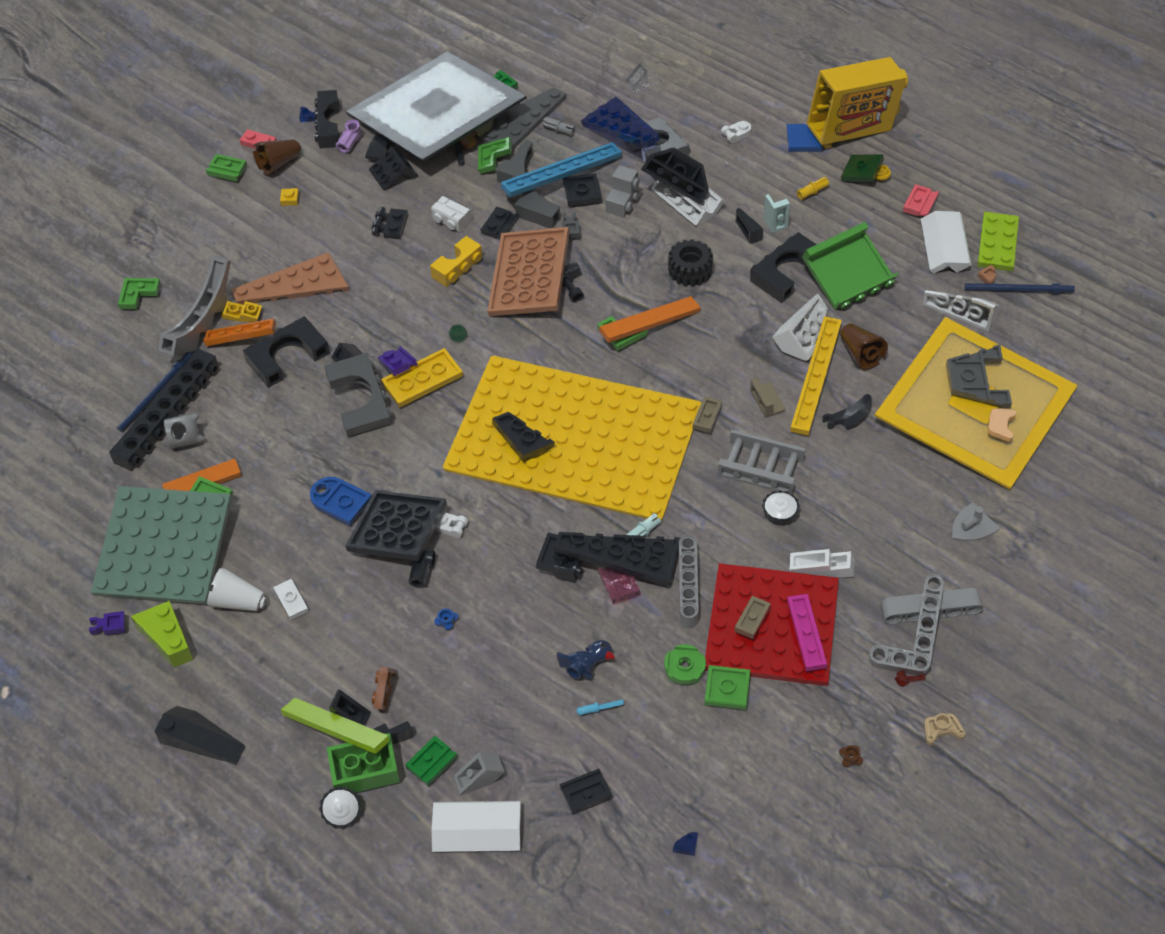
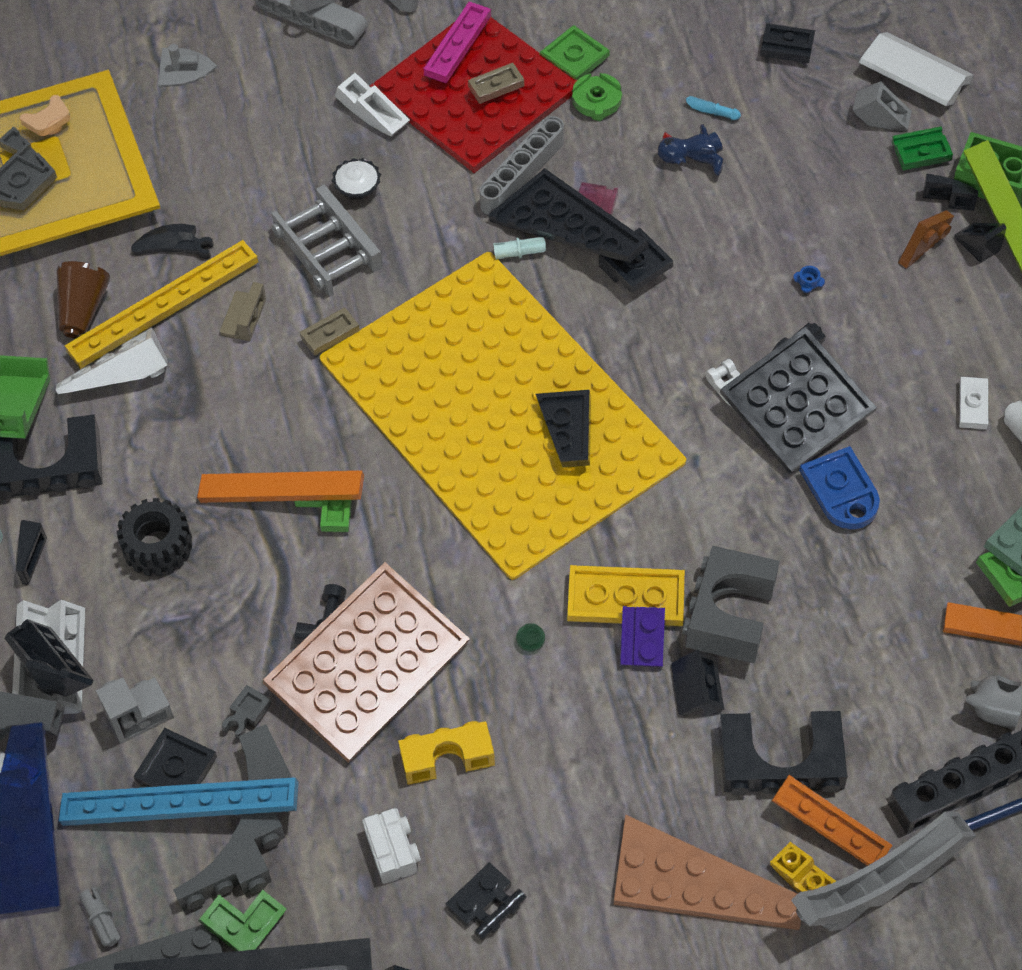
camera: 145 degrees left, 5 degrees up
(499, 222) = (333, 790): black plate -> none

